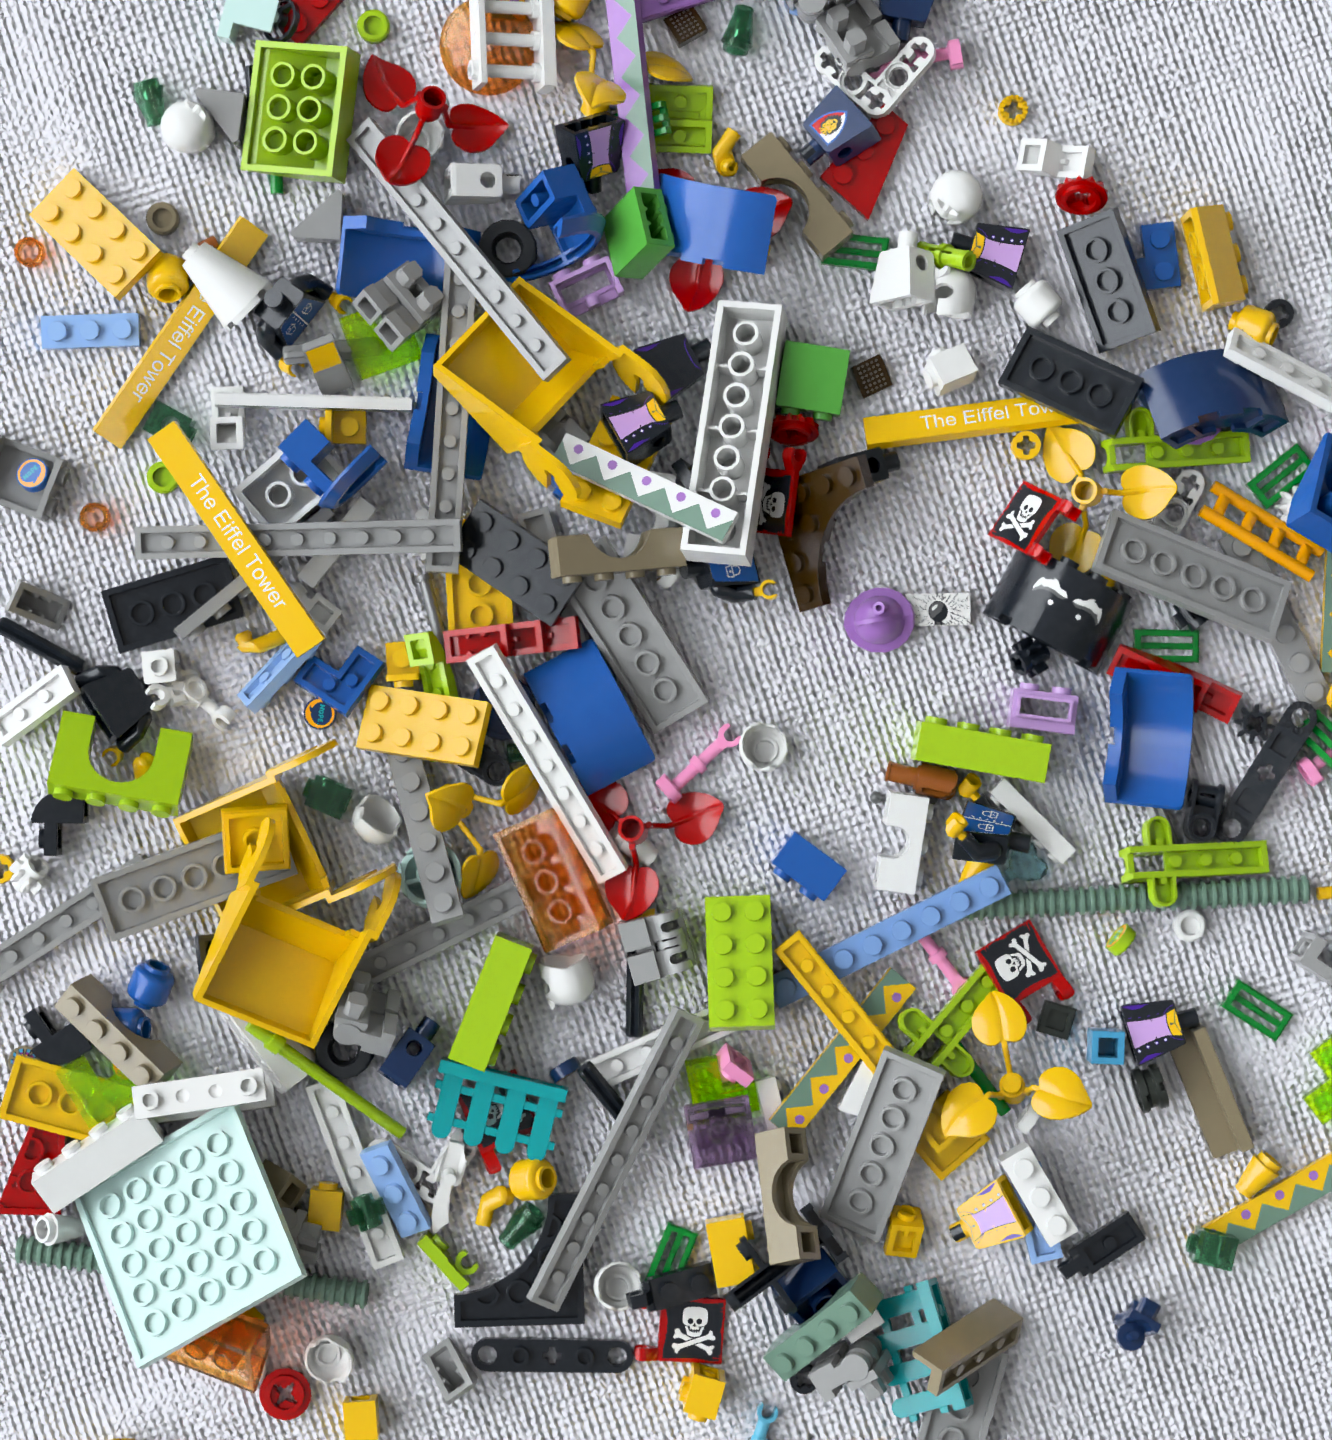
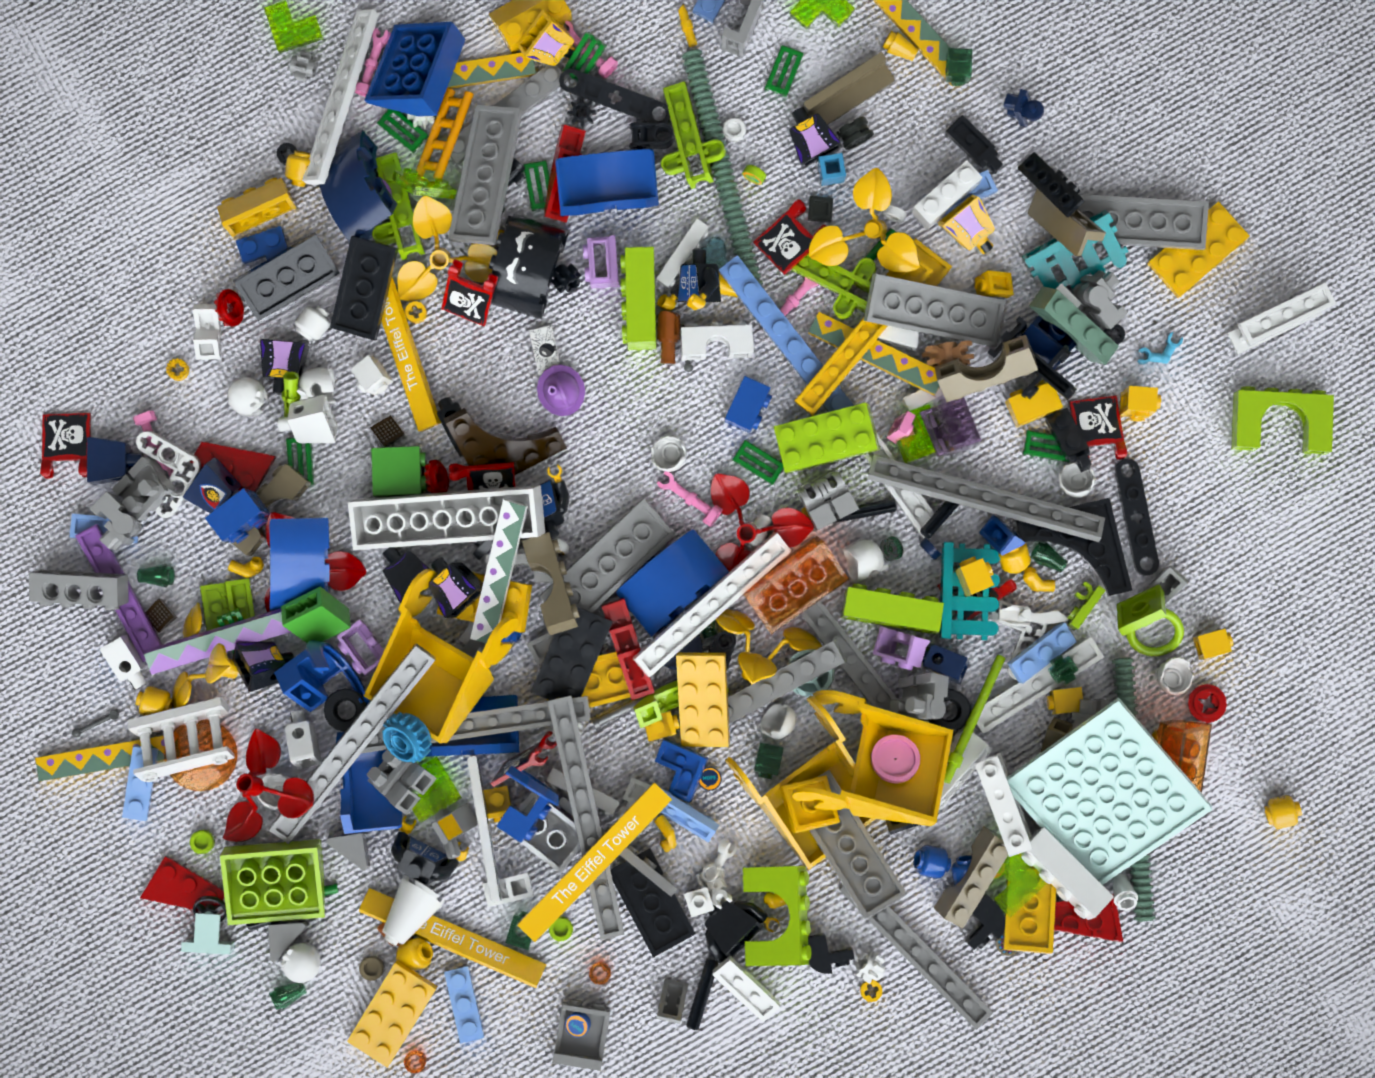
camera: 100 degrees left, 5 degrees down
(305, 971) = (897, 748): none -> bright pink piece
(391, 473) = (525, 759): none -> red flag
(422, 1338) = (1142, 611): none -> lime tile
(449, 323) = (406, 737): none -> dark azure gear
(450, 985) = (887, 642): none -> lavender window
(511, 1121) = (974, 575): none -> yellow brick
(561, 1168) = (1000, 536): none -> blue slope
(576, 1019) = (891, 548): none -> clear green tile
(747, 844) = (775, 473): none -> green tile
(791, 155) = (238, 516): none -> blue brick
(821, 1149) = (947, 352): none -> medium nougat pin
(1022, 1339) = (1052, 184): none -> black bracket
(1191, 486) = (421, 186): none -> clear neon green plate

